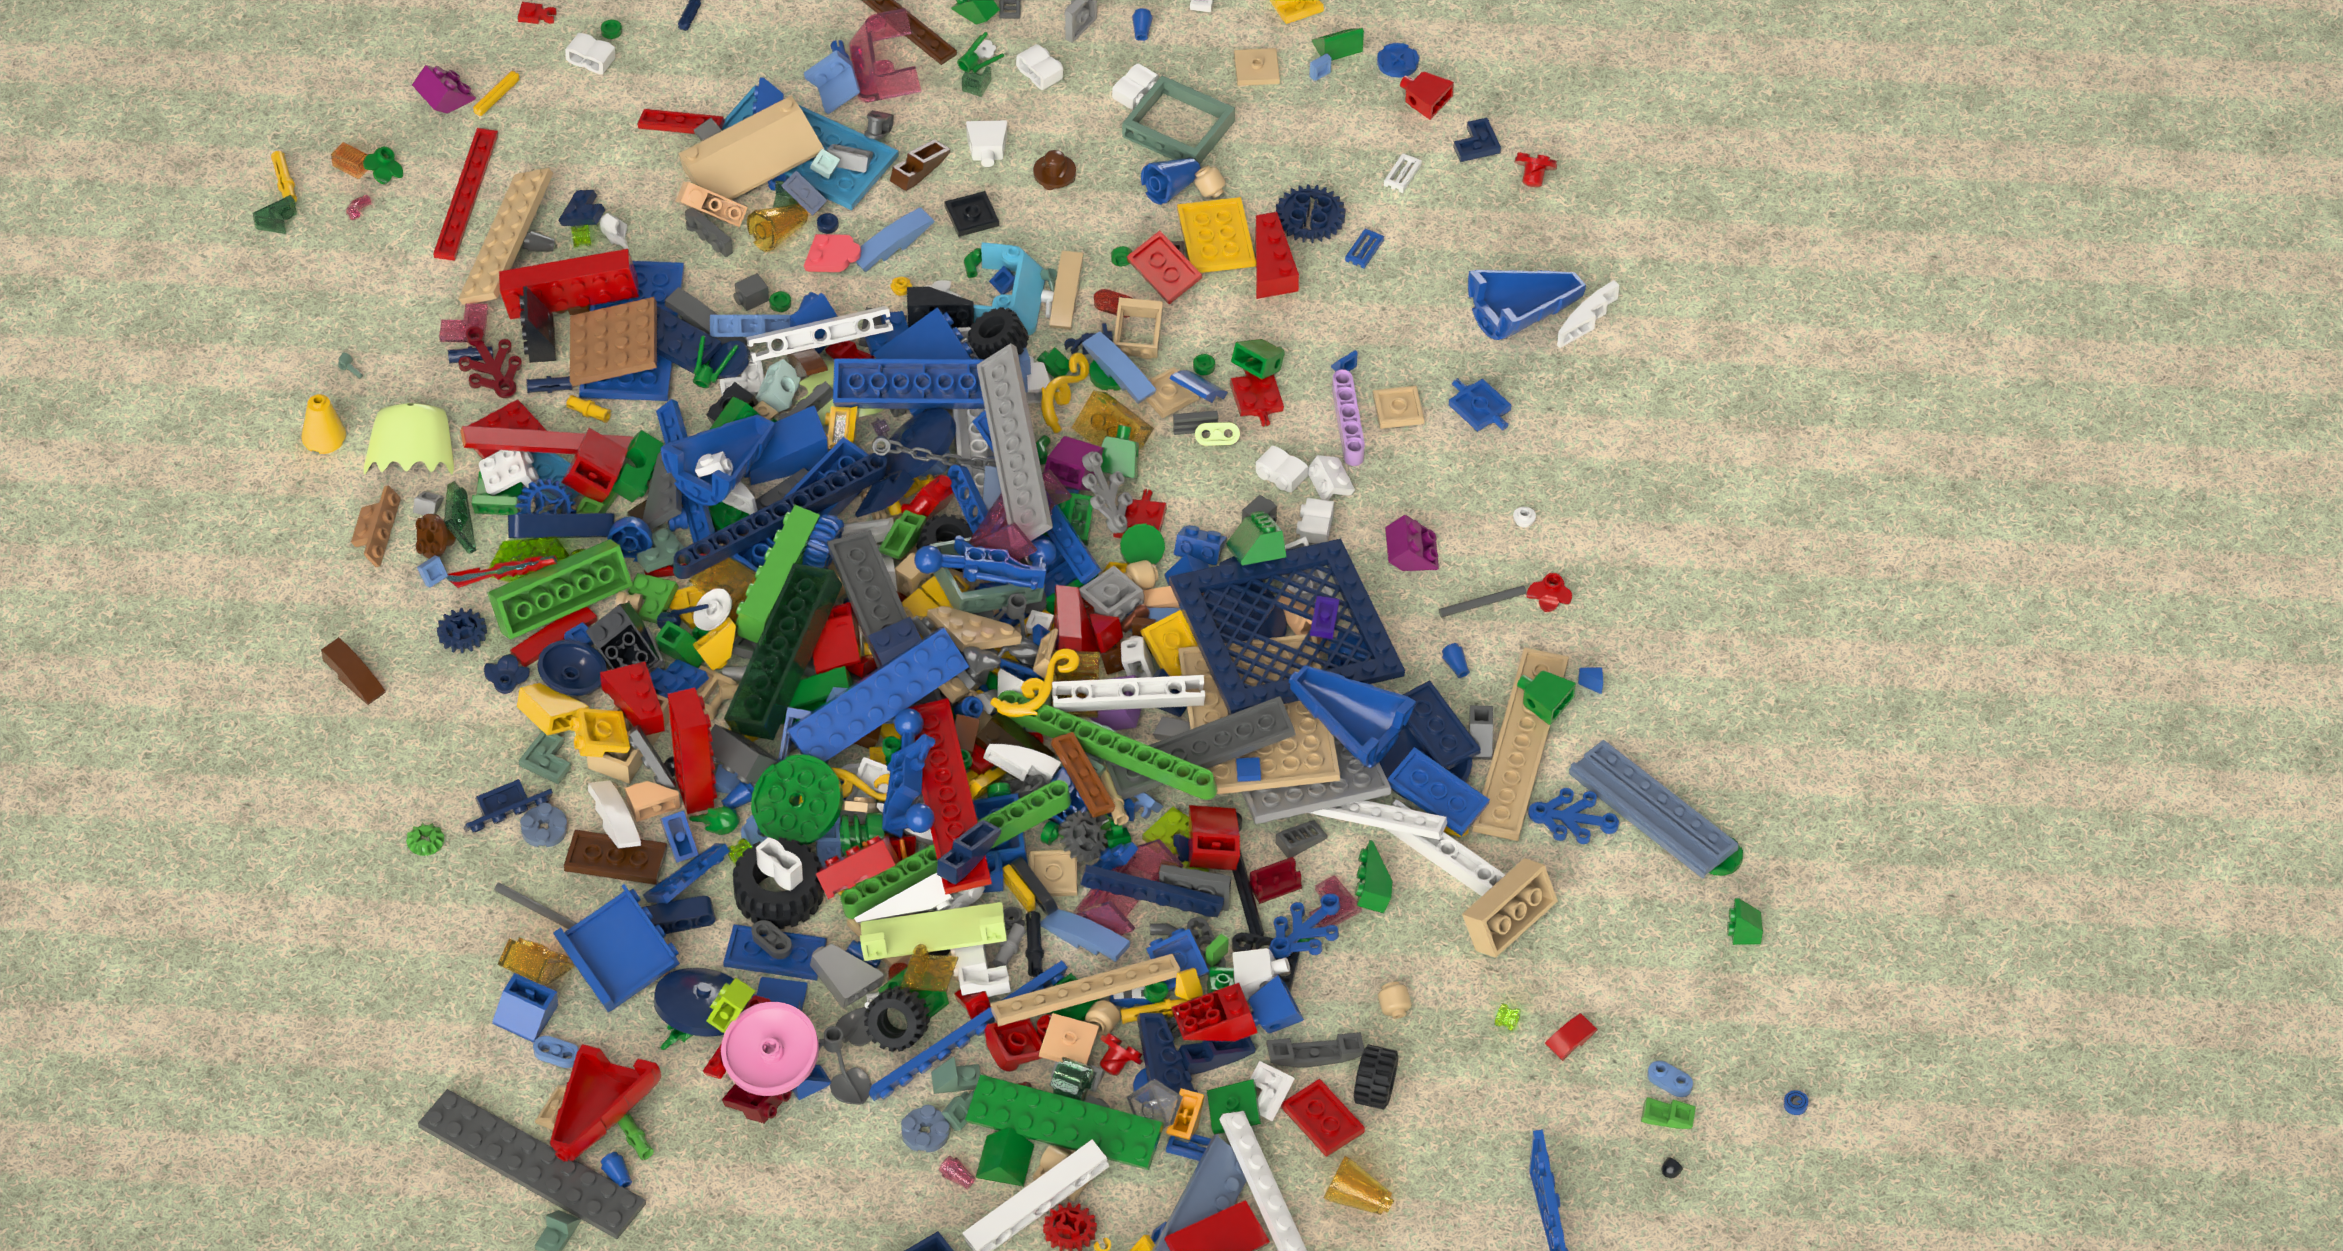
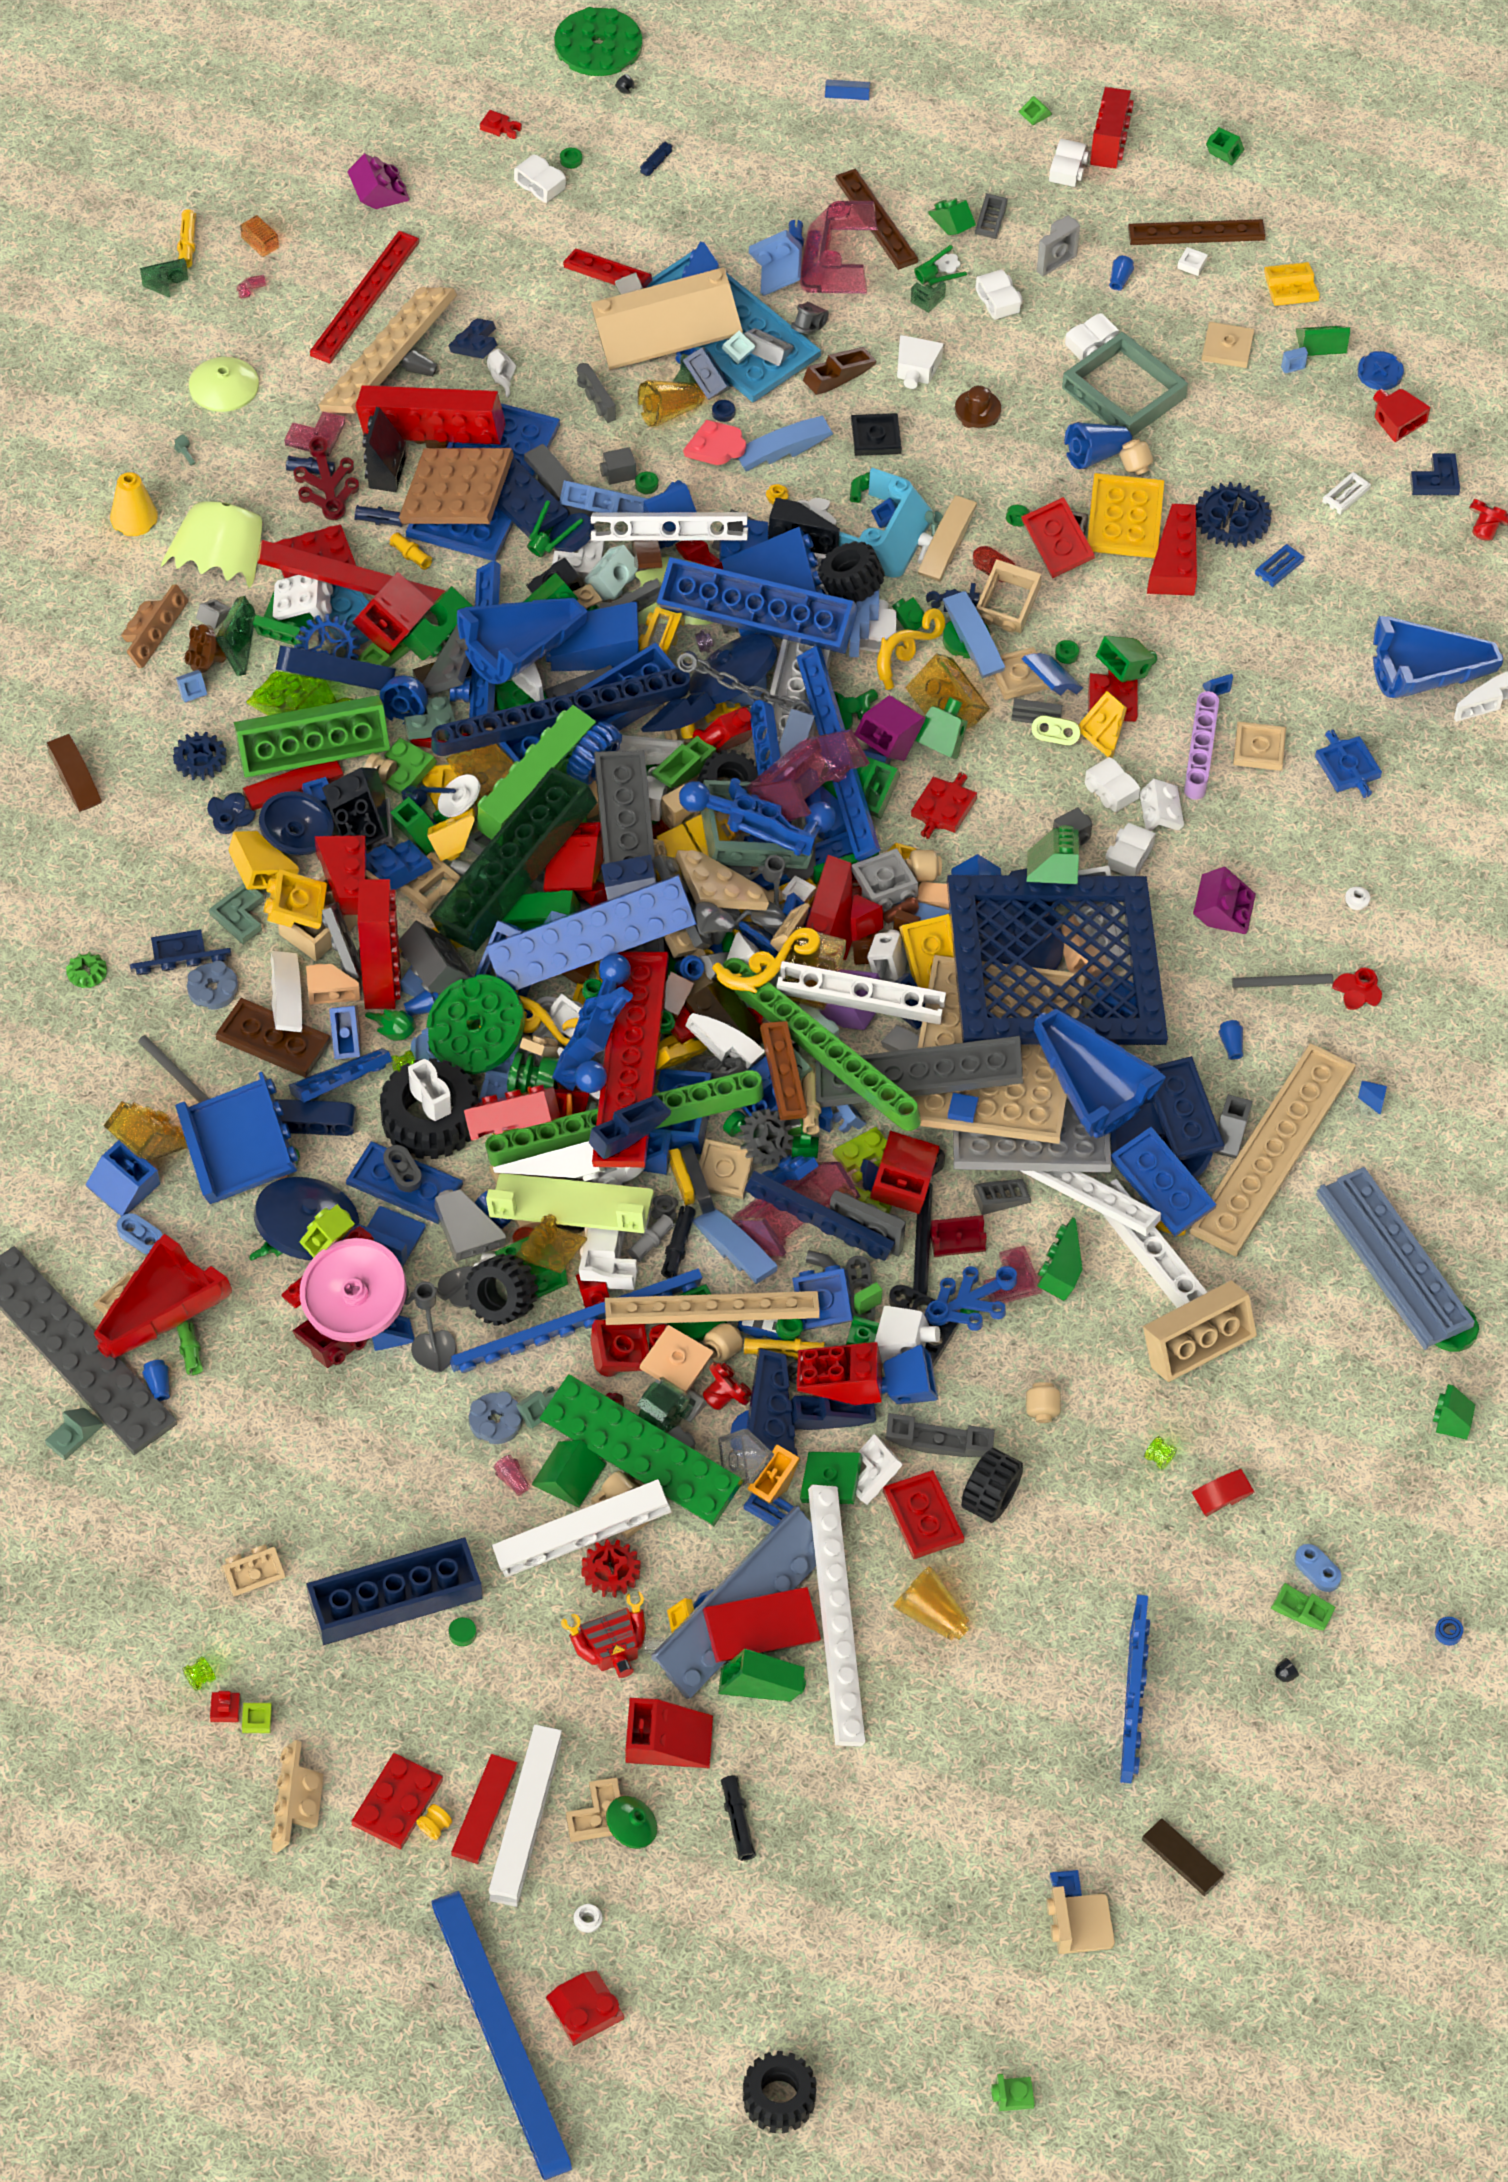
camera: 15 degrees right, 5 degrees up
(363, 300) = (223, 384): none -> yellowish green dish
(383, 165) = (290, 248): green plate -> none
(496, 93) = (431, 198): yellow axle -> none
(500, 570) = (268, 702): red sword -> none
(581, 236) = (464, 367): clear neon green wheel -> none
(710, 463) = (509, 639): white bracket -> none
(711, 204) = (608, 363): light nougat slope -> none
(954, 1078) = (543, 1369): sand green slope -> none
(998, 789) = (692, 1064): green tile -> none
(1014, 442) = (824, 693): light grey plate -> none
(1115, 515) = (915, 795): light grey plant -> none
(1142, 543) = (936, 831): green tile -> none
(1188, 984) = (824, 1329): yellow slope -> none
(1199, 544) = (998, 846): blue bracket -> none
(1258, 418) = (1104, 724): none -> yellow wing
(1324, 617) = (1098, 960): dark purple plate -> none
(1547, 695) = (1316, 1102): green torso -> none
(1571, 816) = (1302, 1243): blue plant -> none

